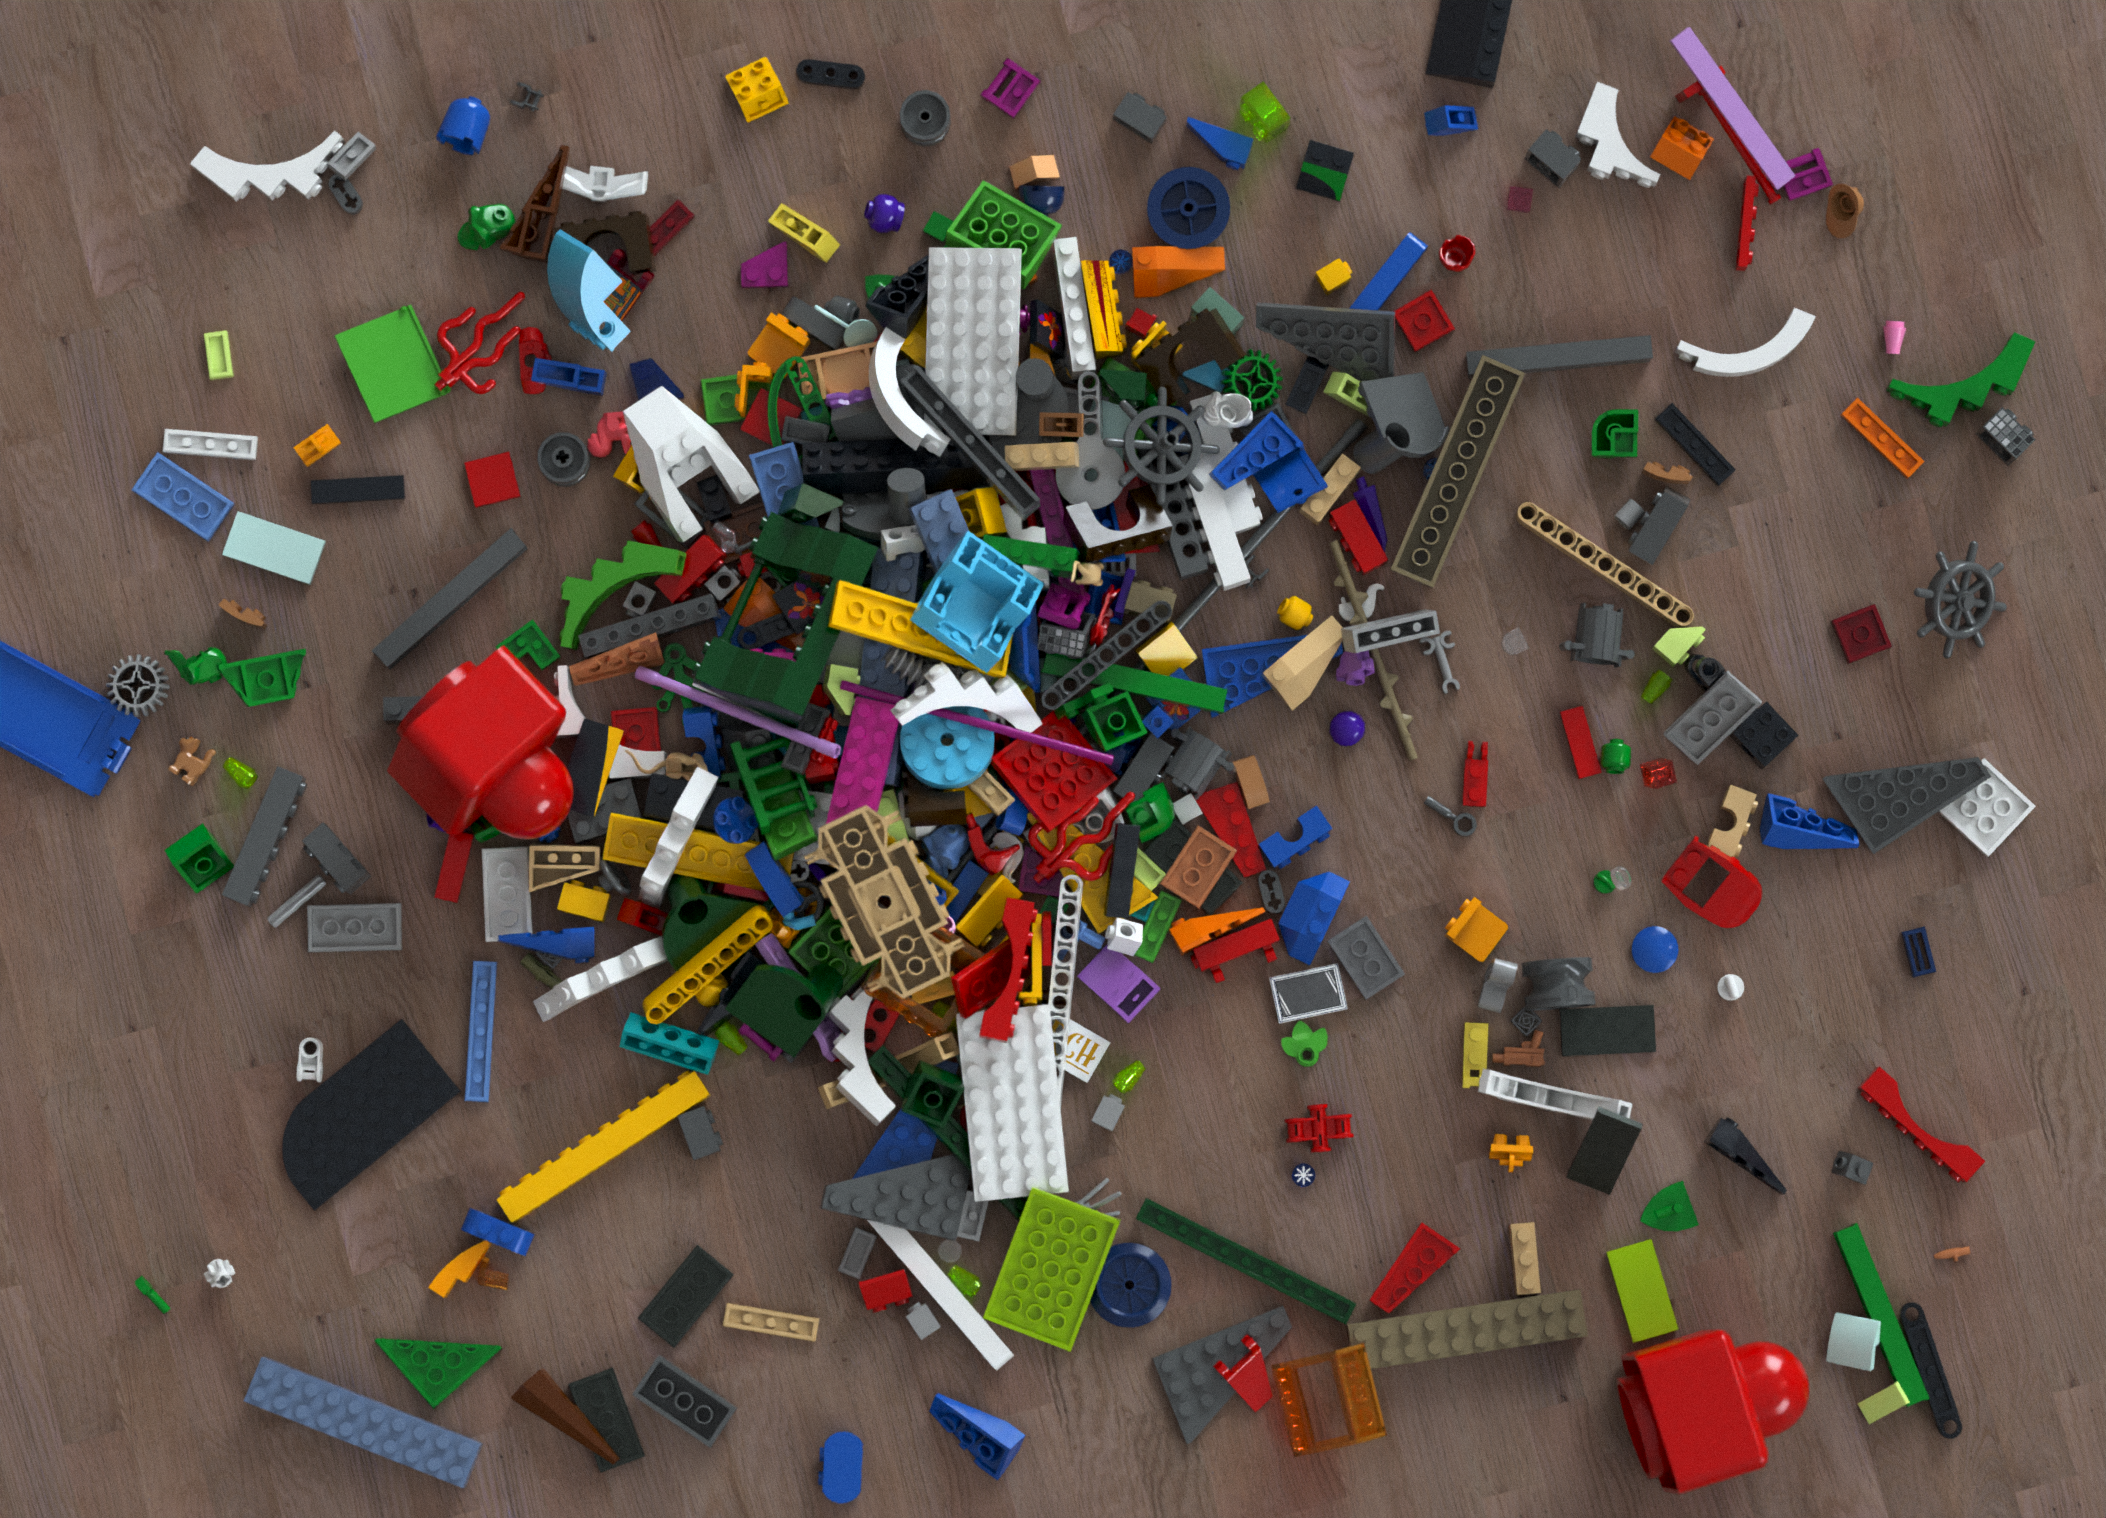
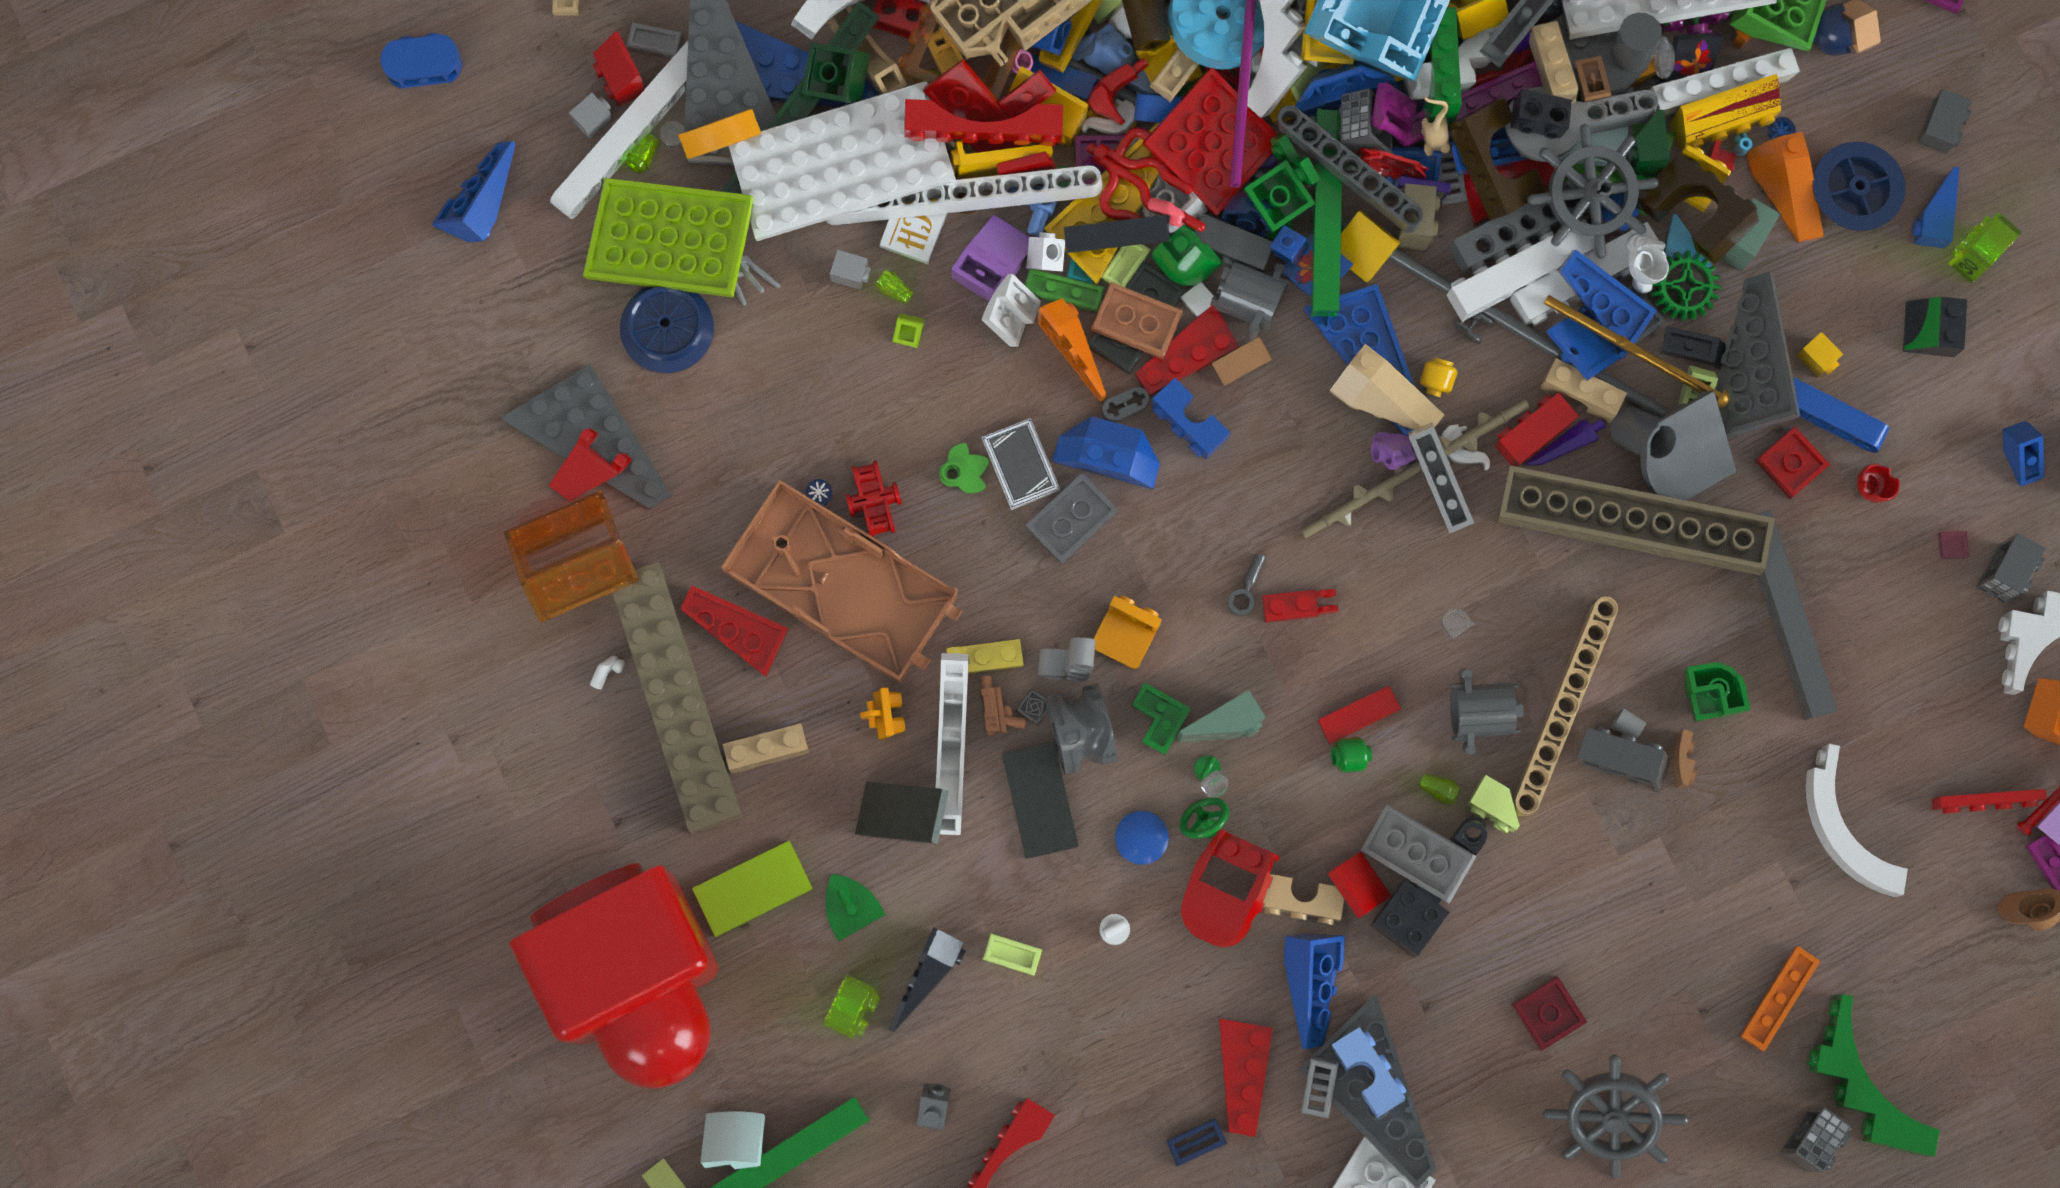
camera: 75 degrees right, 5 degrees down
(965, 1206) = (719, 133): none -> light orange slope
(989, 926) = (1027, 94): none -> red tile
(1049, 355) = (1664, 58): none -> clear gear
(1083, 477) = (1541, 107): none -> black brick
(1110, 824) = (1167, 208): none -> coral arm
(1129, 298) = (1743, 144): none -> medium azure arm
(1168, 1070) = (908, 330): none -> lime slope
(1170, 977) = (1010, 310): none -> white slope
(1234, 946) = (1057, 374): red brick -> none
(1246, 1261) = (712, 446): dark green plate -> none
(1347, 728) = (1322, 456): dark purple hair -> none
(1365, 374) = (1624, 343): none -> pearl gold bar
(1389, 1168) = (841, 582): none -> nougat piece
(1429, 1388) = (604, 668): none -> white arm
(1438, 644) = (1434, 538): light grey bar -> none
(1554, 907) = (1167, 717): none -> green plate
(1570, 854) = (1229, 721): none -> sand green slope
(1653, 891) = (1207, 822): none -> green piece
(1658, 773) = (1342, 804): clear red brick -> none
(1695, 444) = (1723, 786): black tile -> none
(1729, 772) = (1359, 884): none -> red tile
(1735, 1078) = (1012, 954): none -> yellowish green tile
(1761, 1222) = (851, 1008): none -> clear neon green brick
(1863, 899) = (1245, 1062): none -> red wing
(1875, 830) = (1324, 1063): none -> light grey slope
(1894, 334) = (1902, 991): bright pink cone -> none
(1907, 787) = (1358, 1050): none -> light blue arch

